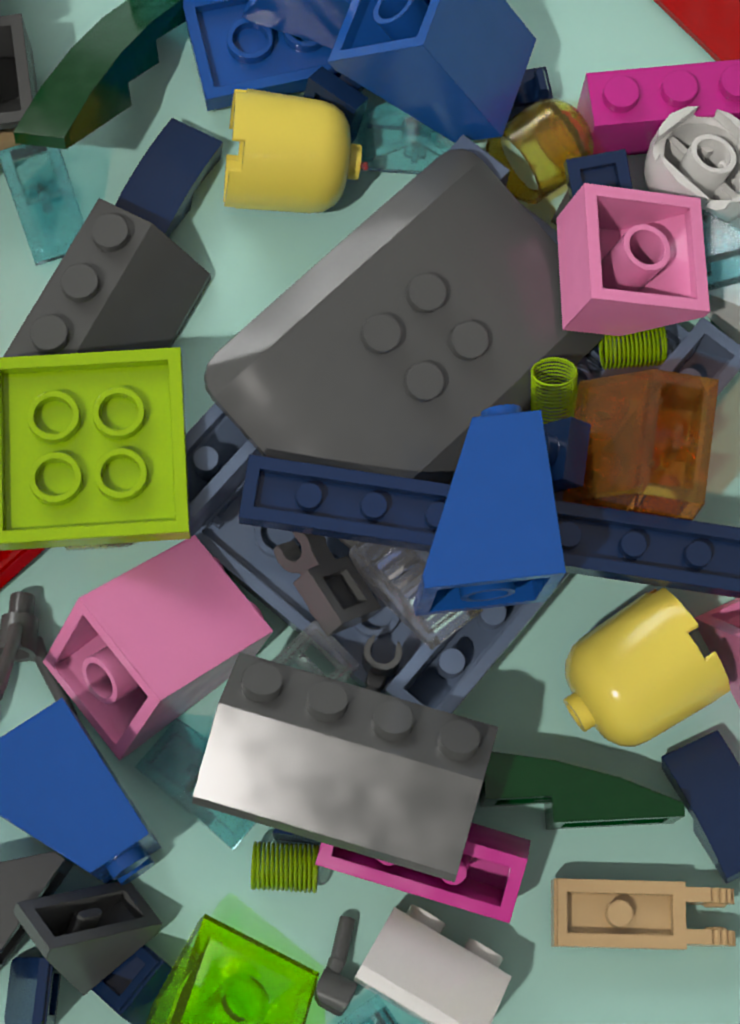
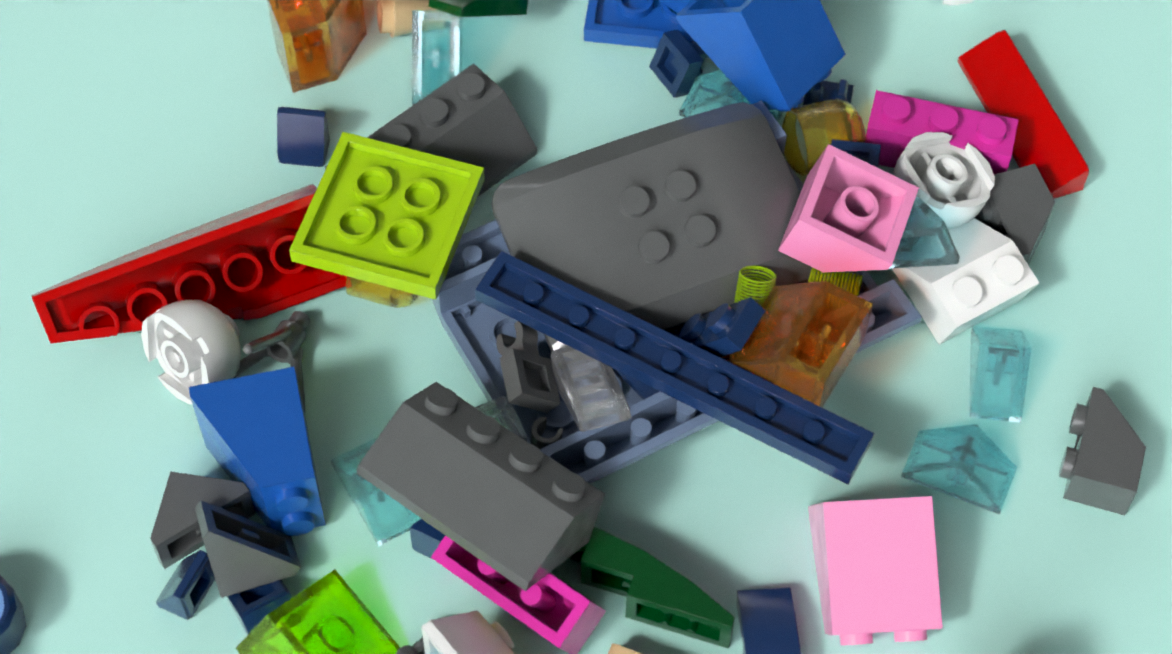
camera: 25 degrees right, 15 degrees down
(154, 643) = (370, 364): bright pink slope -> none
(169, 175) = (535, 71): dark blue slope -> none
(289, 153) = (626, 79): light yellow cylinder -> none
(301, 877) = (405, 571): lime piece -> none
(498, 522) = (649, 339): blue slope -> none
(641, 672) = (741, 515): light yellow cylinder -> none

